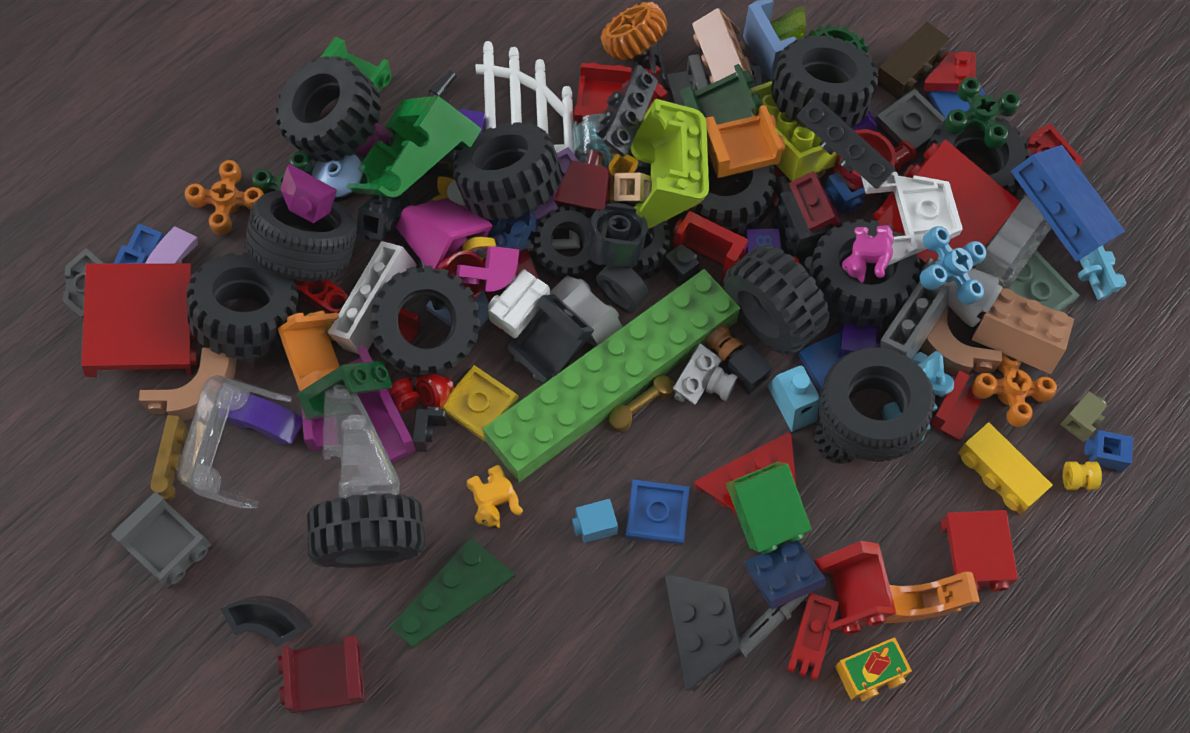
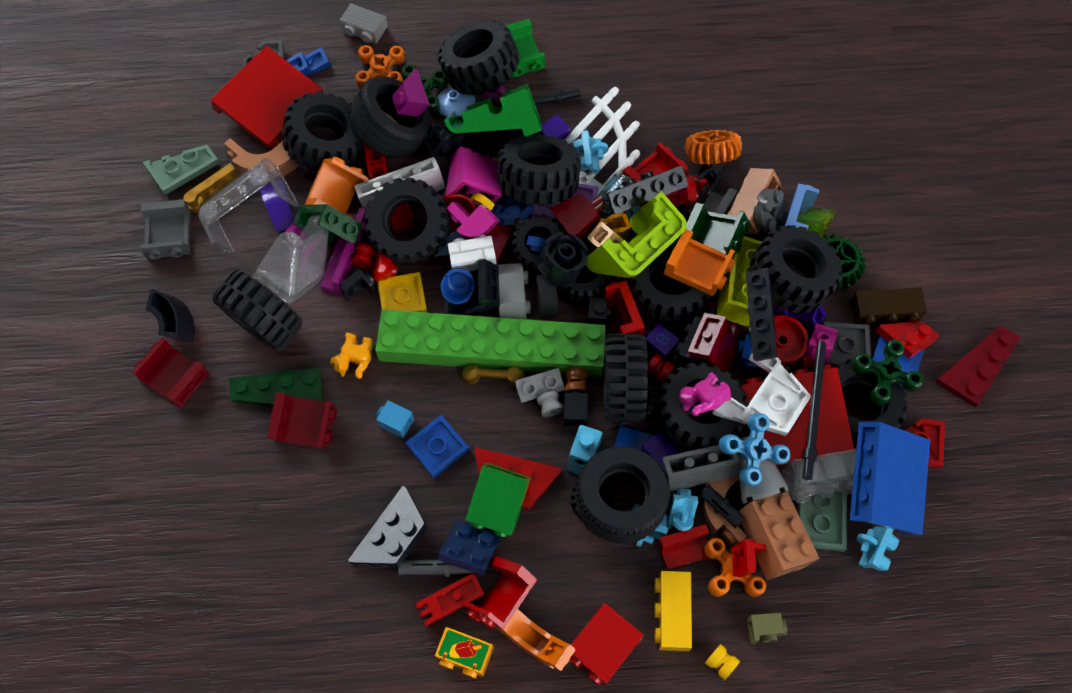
camera: 45 degrees right, 0 degrees up
(111, 465) = (177, 170): none -> sand green wing
(160, 167) = (363, 23): none -> light grey brick
(173, 247) = (326, 75): lavender slope -> none
(511, 600) = (302, 421): none -> dark red panel
(535, 111) = (593, 151): none -> medium azure hips
(535, 344) = (457, 286): none -> blue hair
(571, 245) = (536, 244): none -> blue plate
(749, 52) = (770, 211): none -> dark grey plate
(900, 132) = (825, 334): none -> dark pink brick
(960, 342) = (722, 506): none -> black pin
(995, 231) = (810, 453): none -> black bar
(1022, 368) = (744, 557): none -> red bracket
(1029, 61) = (978, 369): none -> dark red wing
(1117, 449) = (766, 667): blue brick -> none

